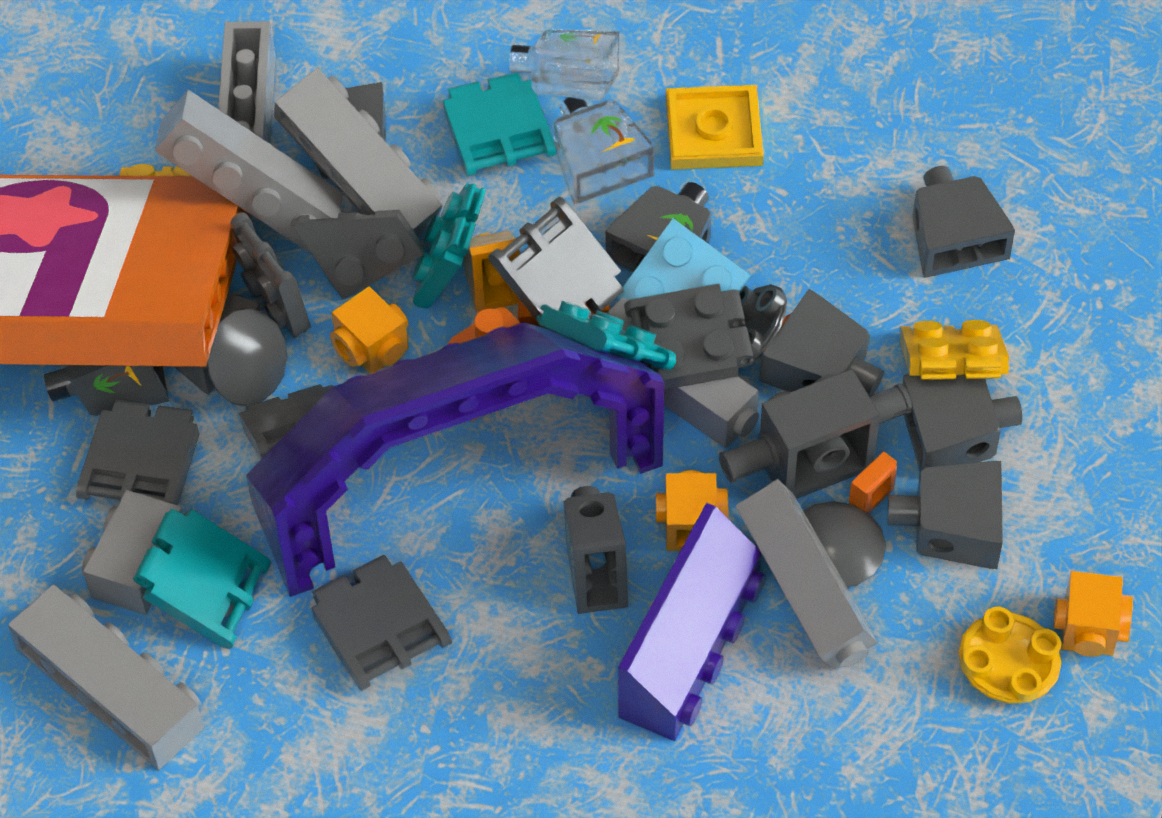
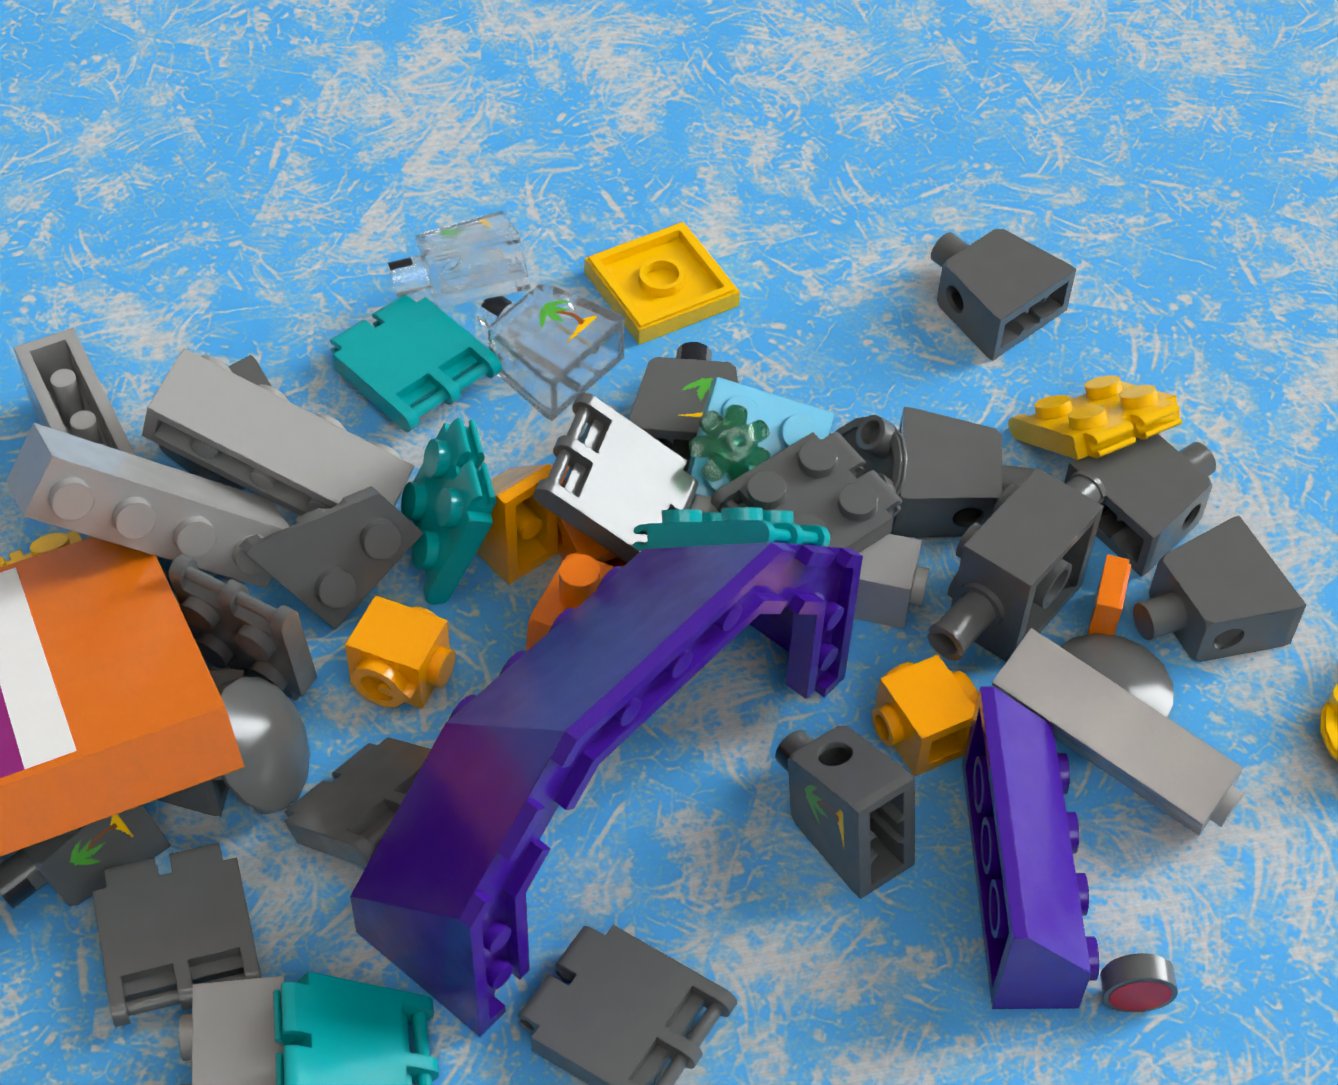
camera: 30 degrees left, 5 degrees down
(669, 269) = (720, 447): none -> clear green plant
(714, 739) = (1138, 983): none -> dark grey tile

